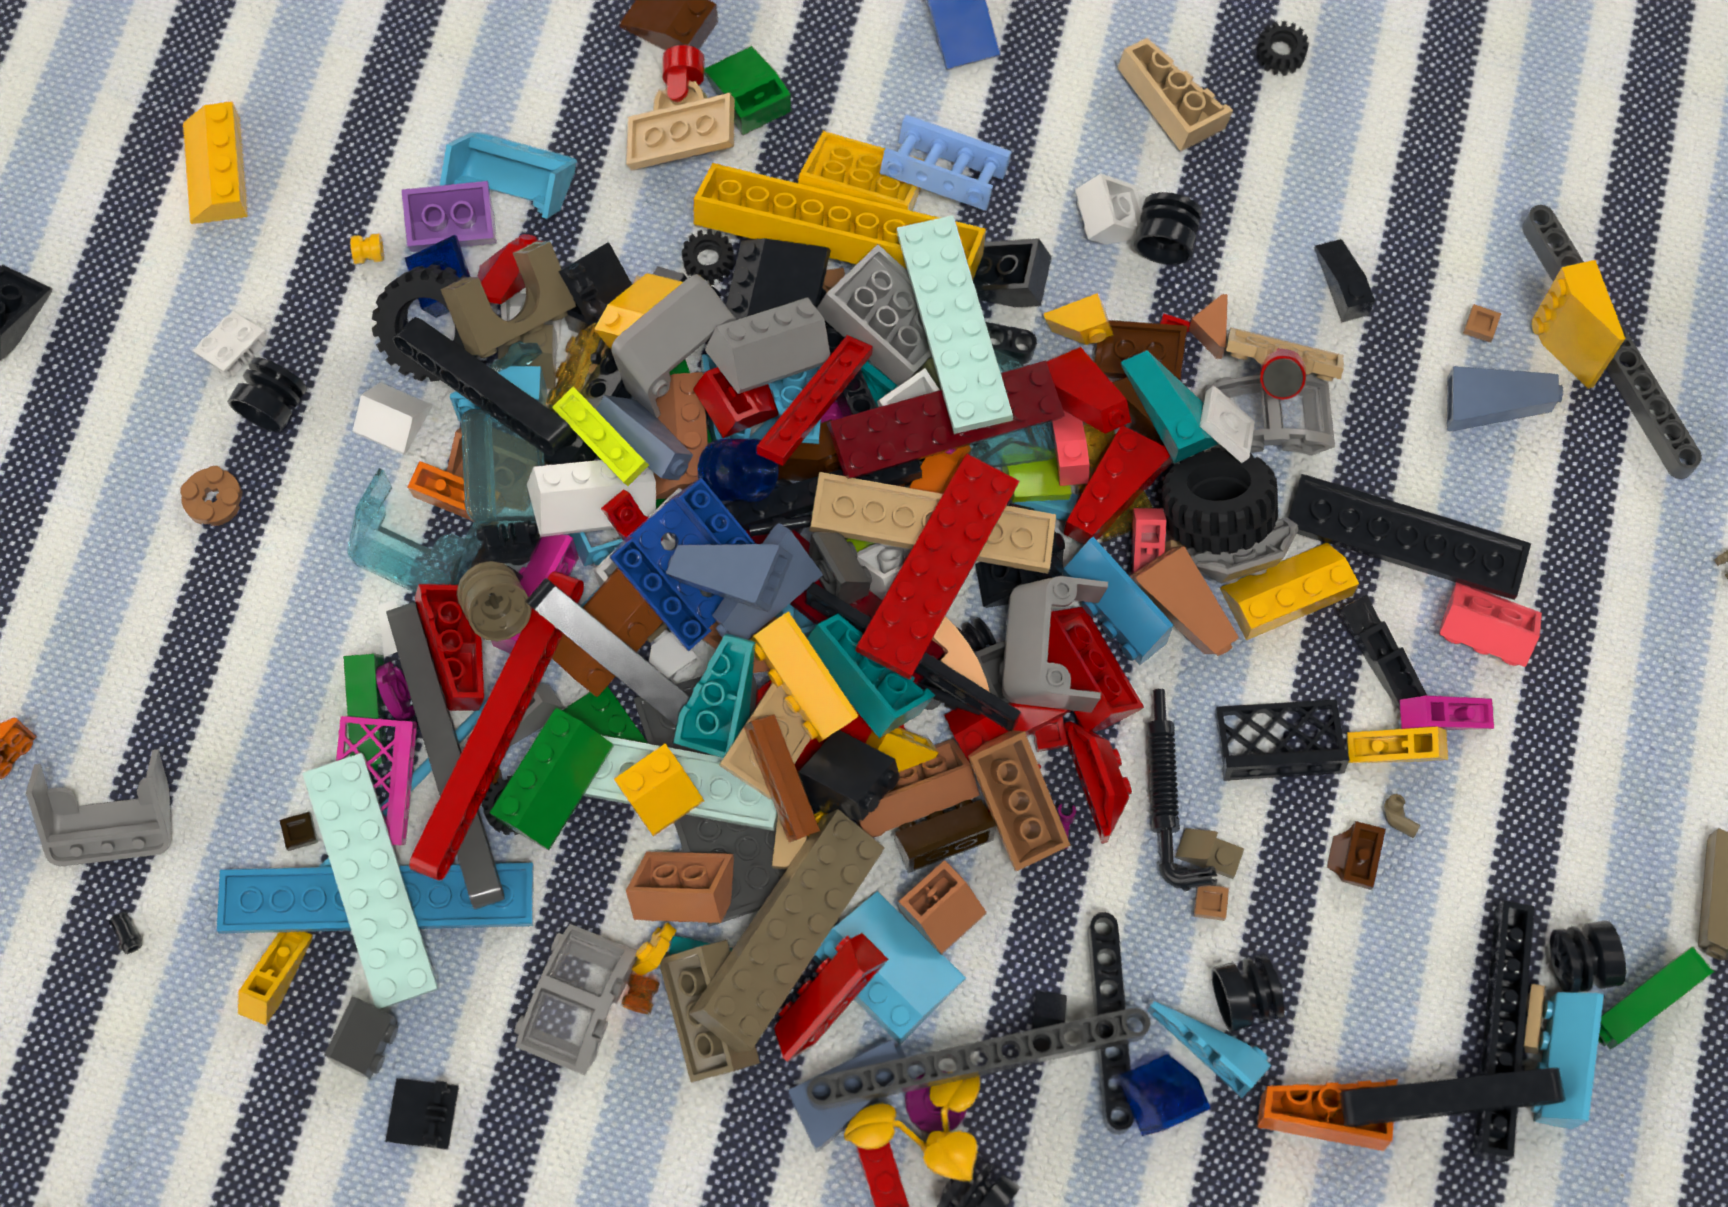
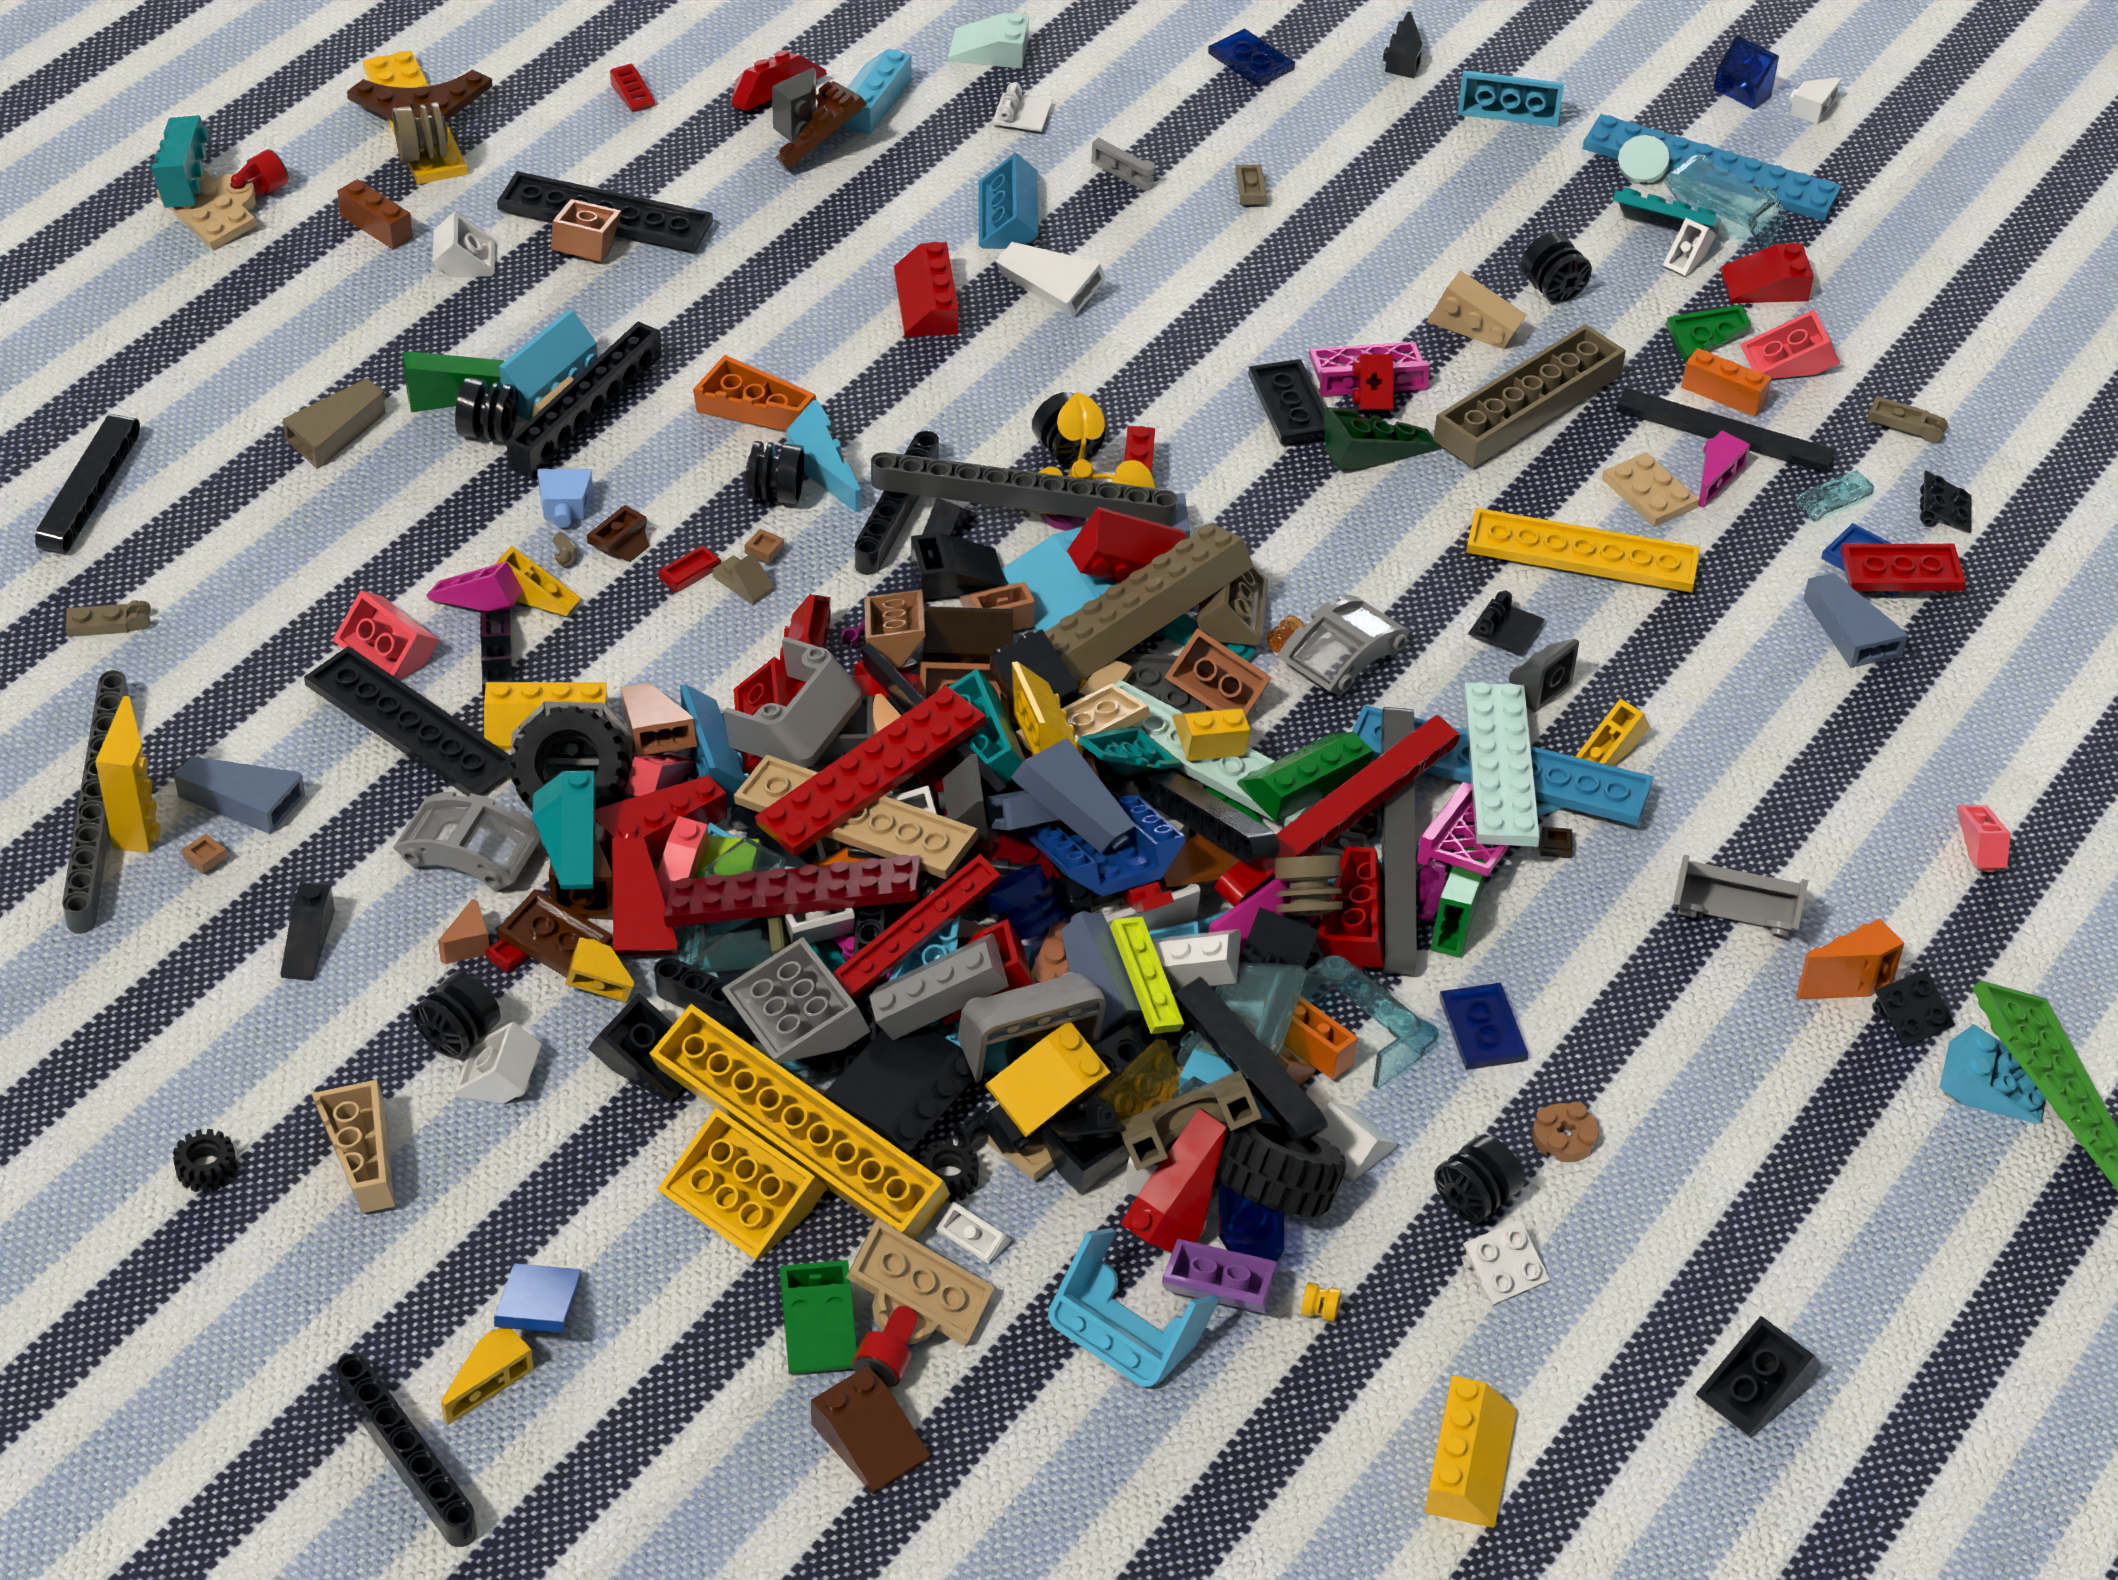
camera: 160 degrees left, 25 degrees down
(125, 933) = (1738, 809): black pin -> none
(312, 584) = (1483, 1026): none -> clear blue tile
(651, 954) = (1264, 648): yellow plate -> none
(665, 218) = (972, 1233): none -> white slope
(781, 778) = (1098, 683): dark orange fence -> none
(952, 147) = (640, 1185): light blue fence -> none
(954, 325) = (740, 951): light aqua plate -> none
(1005, 946) = (953, 566): none -> black slope
(1163, 1094) = (883, 430): clear blue slope -> none
(1165, 799) = (758, 618): black piece -> none
(1227, 424) = (527, 799): white tile -> none
(1268, 847) = (689, 569): none -> red tile
(1284, 362) = (420, 864): plate -> none
(1286, 763) = (637, 607): black fence -> none
(1443, 884) = (565, 494): none -> light blue torso
(1452, 1097) = (662, 353): black beam -> none

